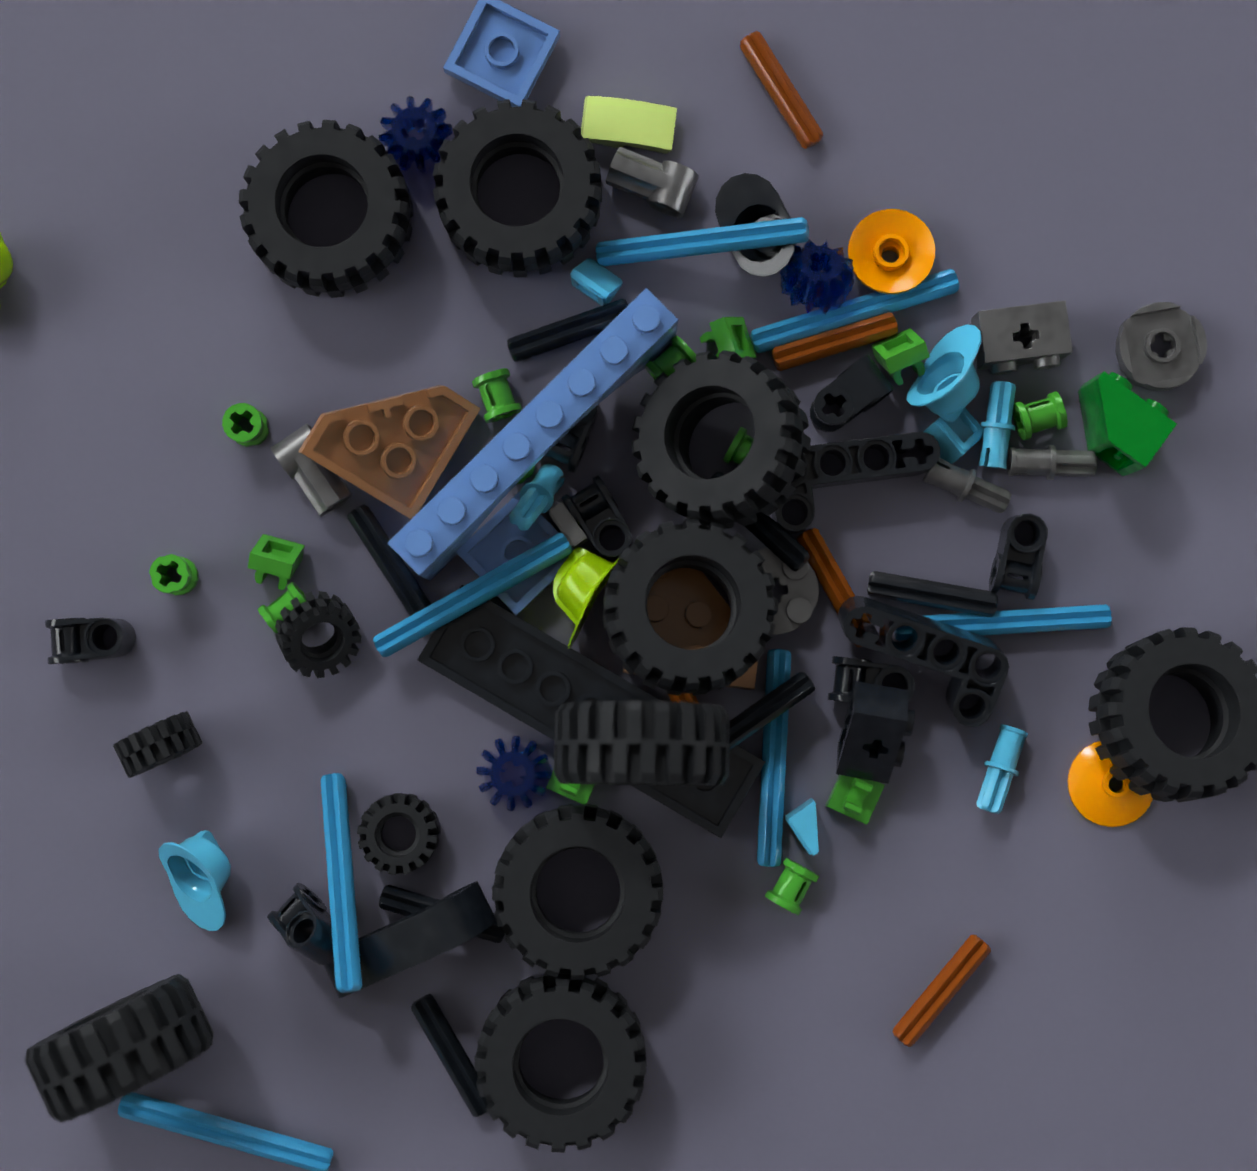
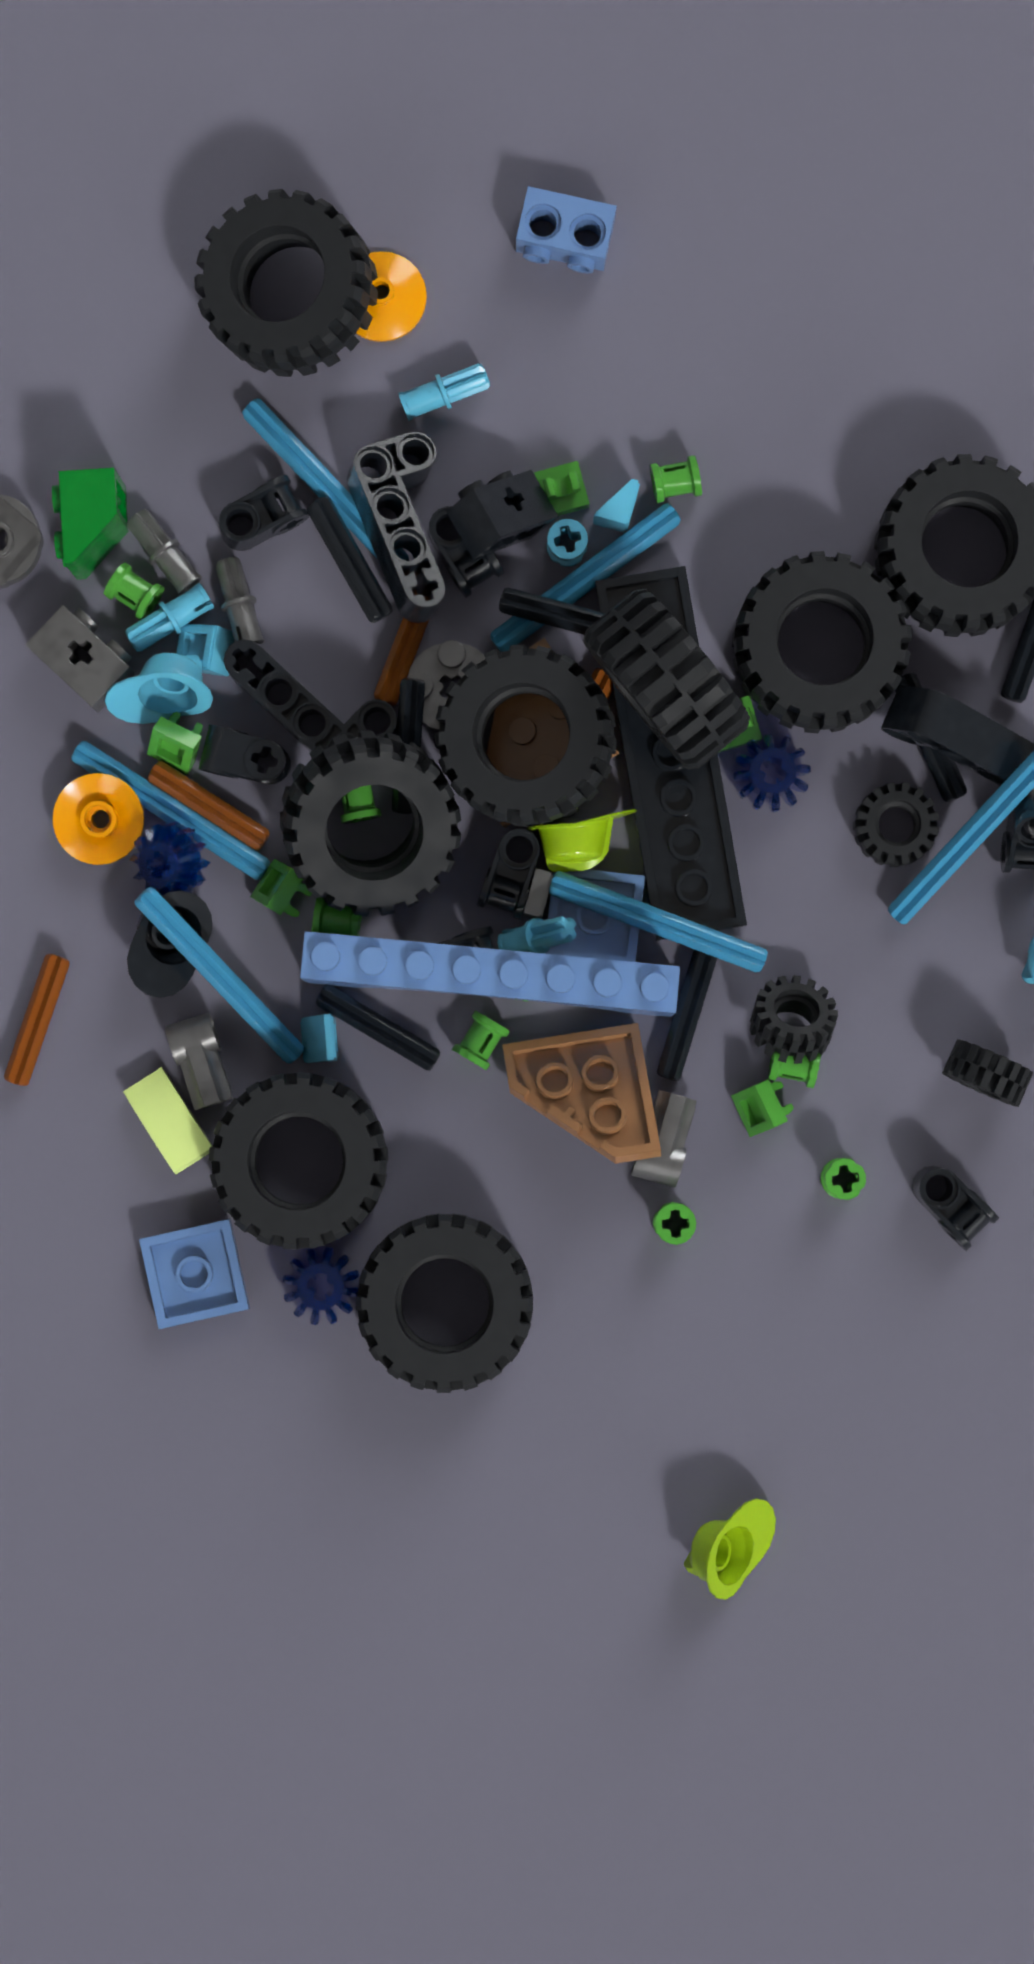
camera: 130 degrees left, 0 degrees up
(814, 777) = (575, 531): none -> medium azure bush
(941, 990) = (658, 296): dark orange axle -> none
(1055, 972) = (569, 217): none -> medium blue brick

